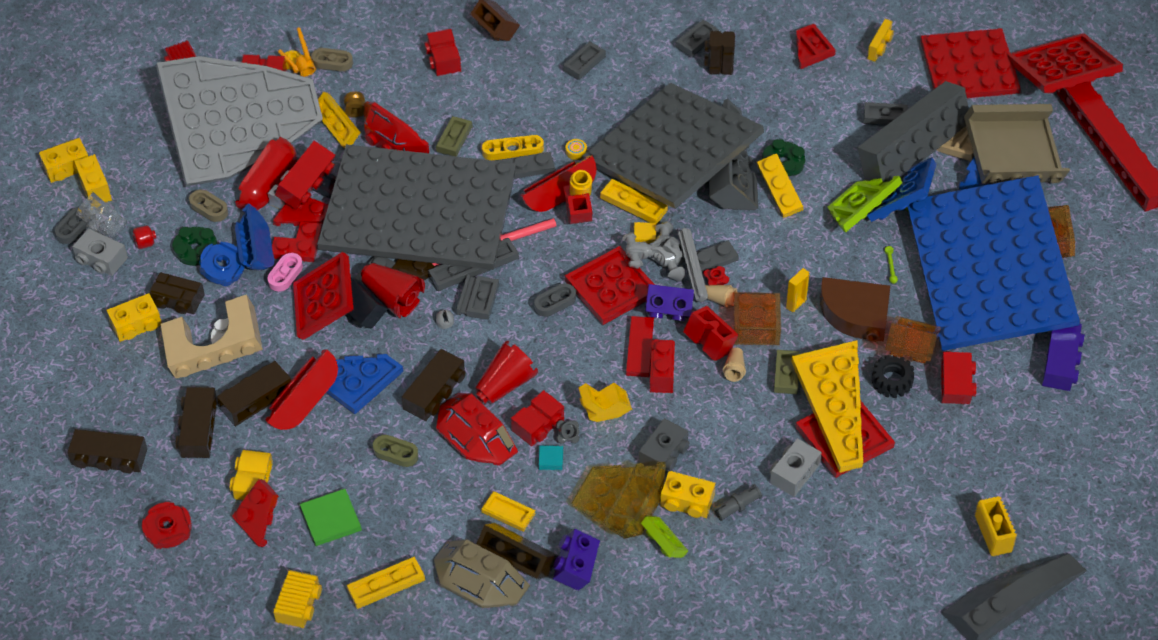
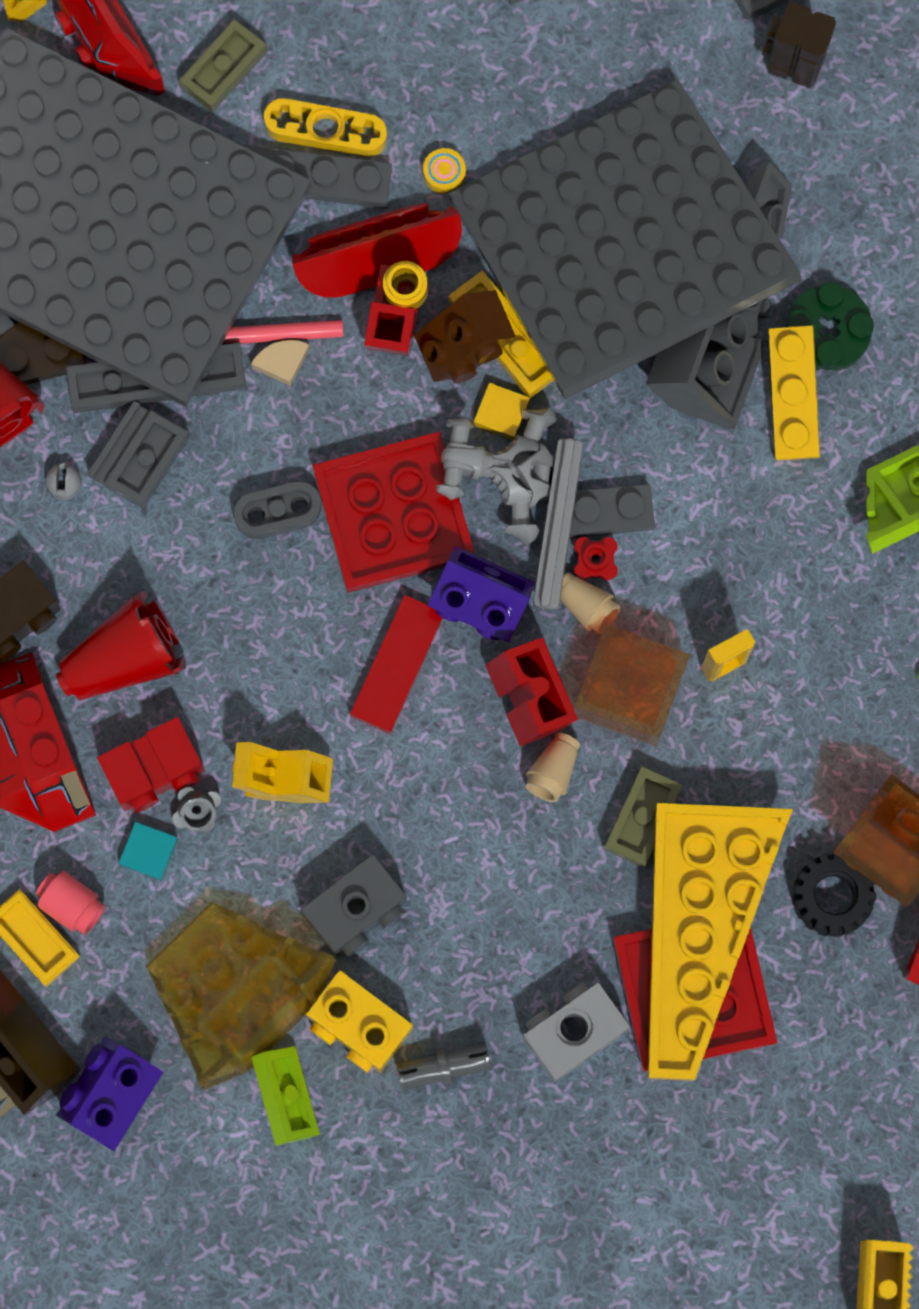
camera: 15 degrees right, 25 degrees up
(521, 487) = (69, 902): none -> coral brick
(530, 242) = (281, 360): none -> tan tile
(616, 201) = (465, 337): none -> reddish brown brick
(662, 366) = (417, 730): red brick -> none
(855, 307) = (827, 722): reddish brown brick -> none

